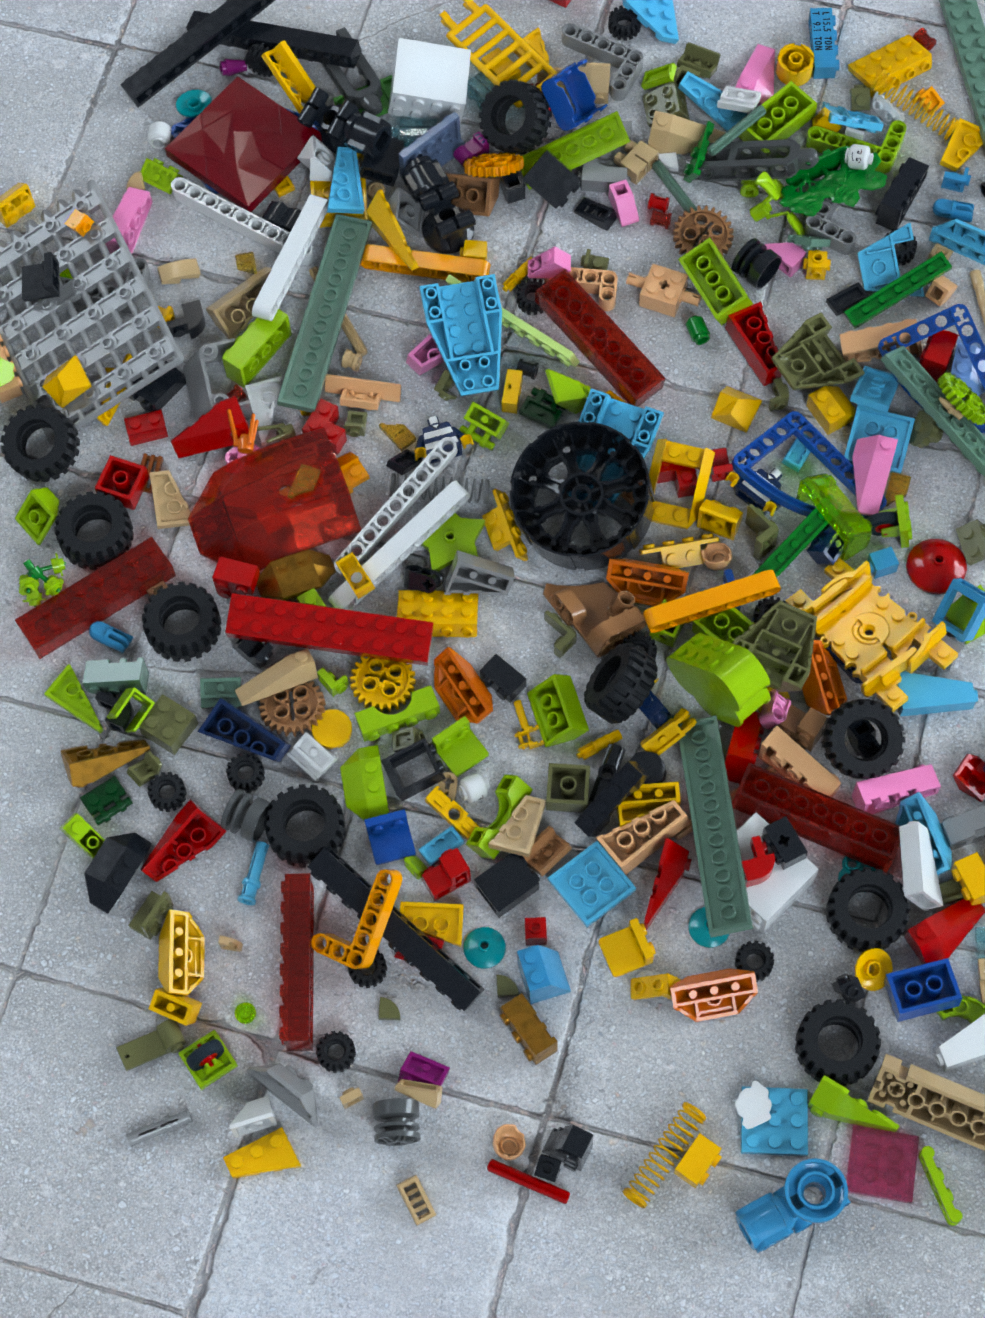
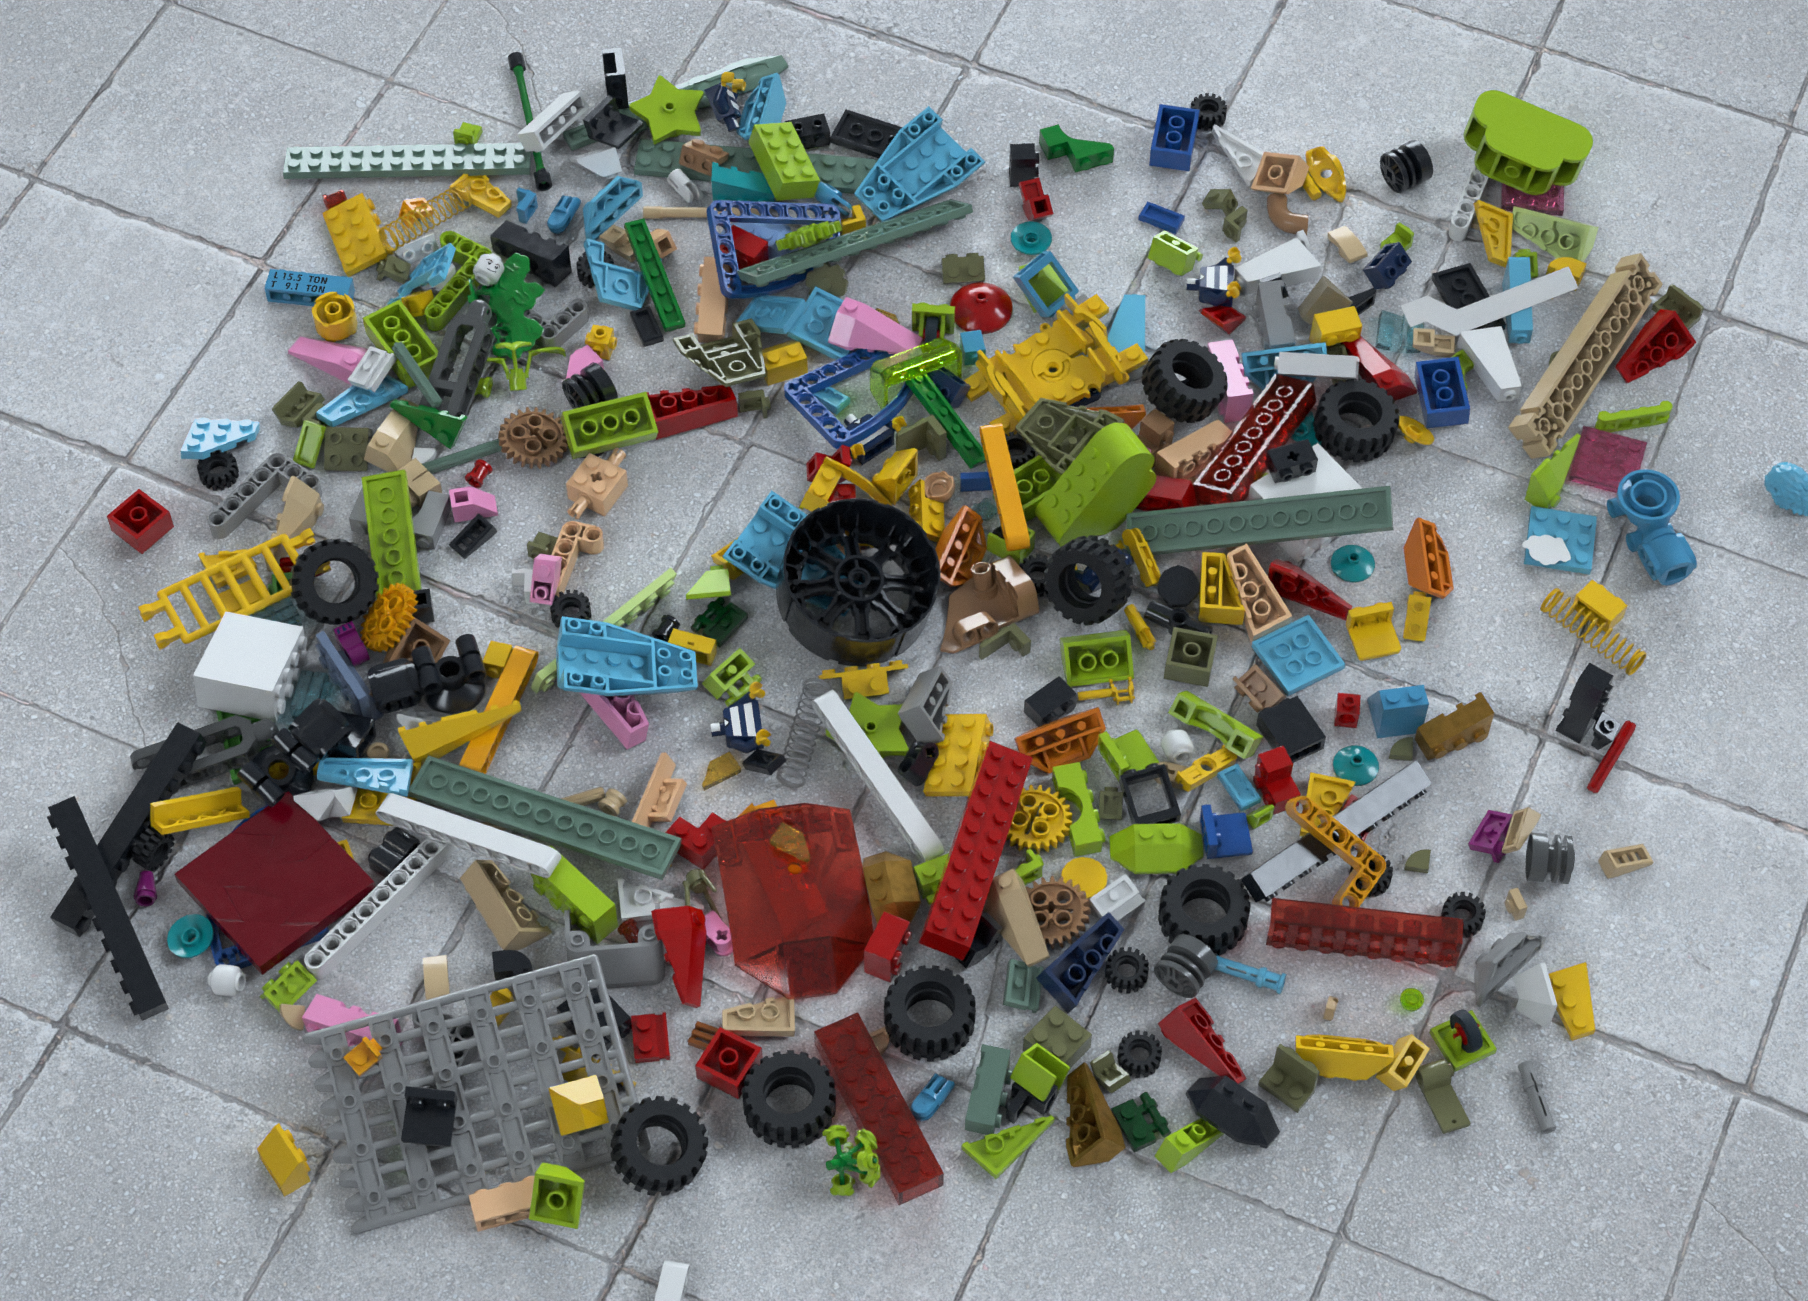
camera: 85 degrees left, 10 degrees down
(38, 513) = (752, 1162): lime slope -> none
(246, 262) = (447, 899): clear yellow tile -> none
(246, 441) = (715, 908): orange plant -> none
(349, 565) = (920, 811): yellow piece -> none
(356, 423) = (698, 808): olive bracket -> none
(399, 497) = (826, 758): white beam -> none
(444, 384) = (667, 707): olive bracket -> none
(508, 1142) = (1573, 765): light nougat hair -> none
(516, 277) = (536, 621): yellow piece -> none
(521, 829) = (1235, 701): tan wing -> none
(552, 179) = (427, 561): black brick -> none
(579, 92) = (315, 522): blue piece -> none
(599, 339) = (651, 547): clear red brick -> none
(624, 783) = (1205, 592): black arch -> none
(660, 219) = (500, 475): clear red bush -> none
(698, 330) = (655, 461): green brick -> none
(736, 408) = (758, 446): yellow slope -> none
(761, 866) = (1309, 483): red brick -> none
(762, 951) = (1397, 538): black tyre -> none
(809, 242) = (574, 338): sand green plate -> none
(849, 988) = (1431, 452): black bracket -> none
(849, 1017) = (1494, 447): black tyre -> none
(950, 408) = (822, 244): tan helmet -> none

